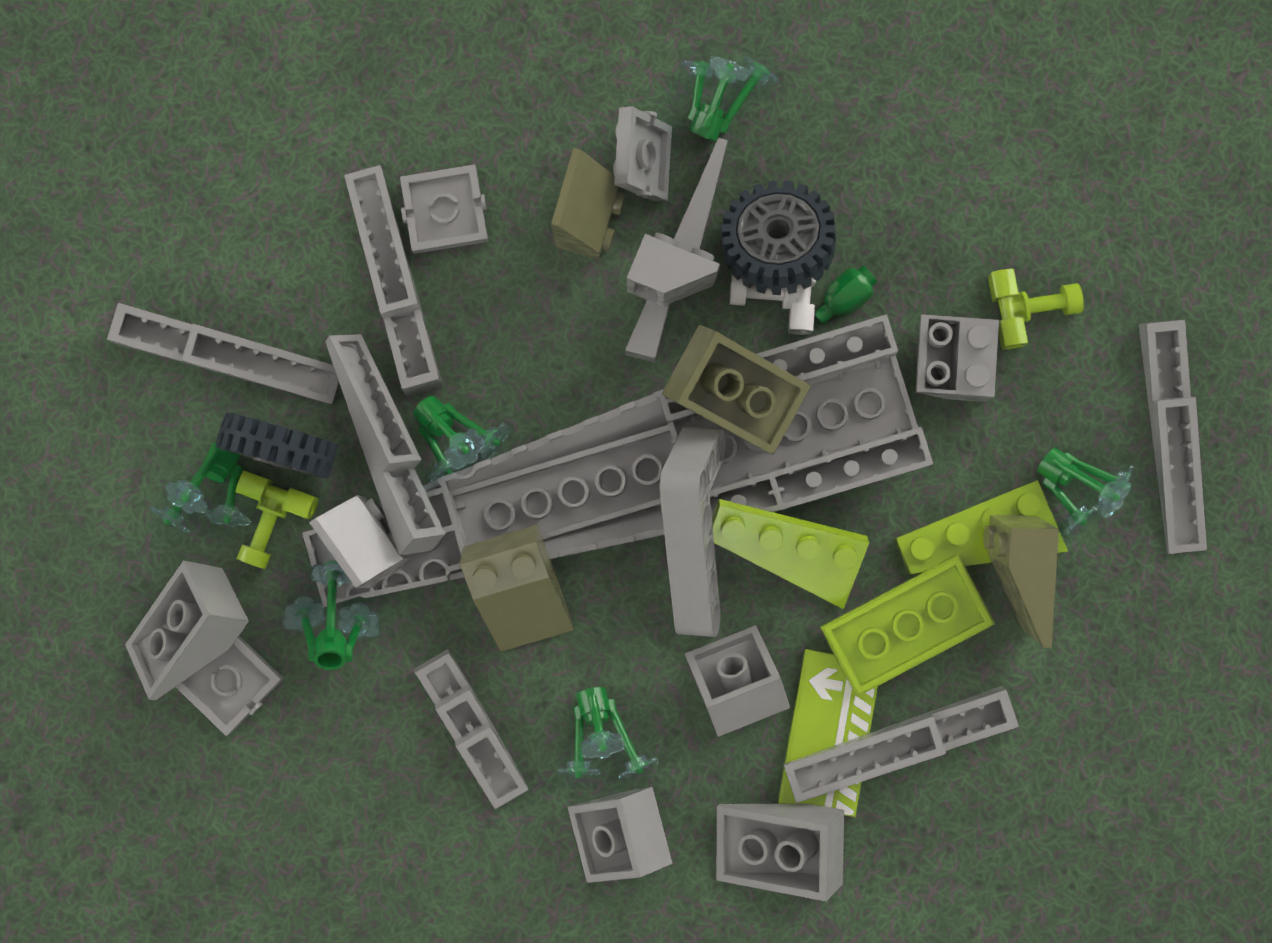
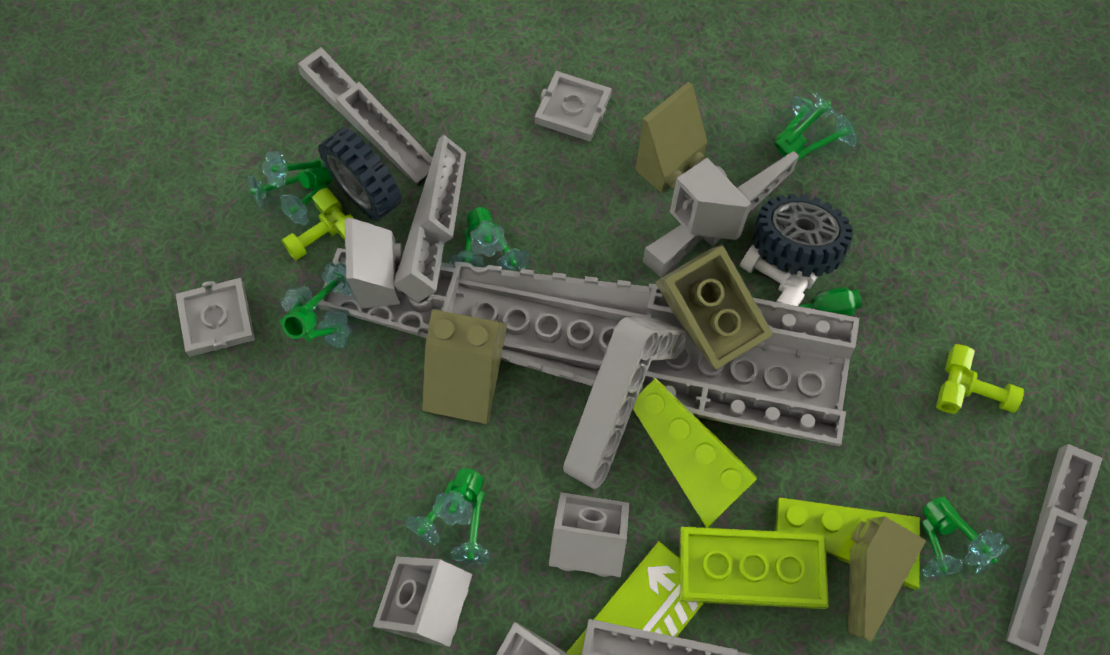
camera: 30 degrees right, 20 degrees down
(185, 627) = (215, 260): light grey slope -> none
(393, 281) = (508, 135): light grey slope -> none
(471, 729) = (362, 453): light grey slope -> none
(642, 154) = (733, 134): light grey plate -> none
(957, 357) = (897, 388): light grey slope -> none

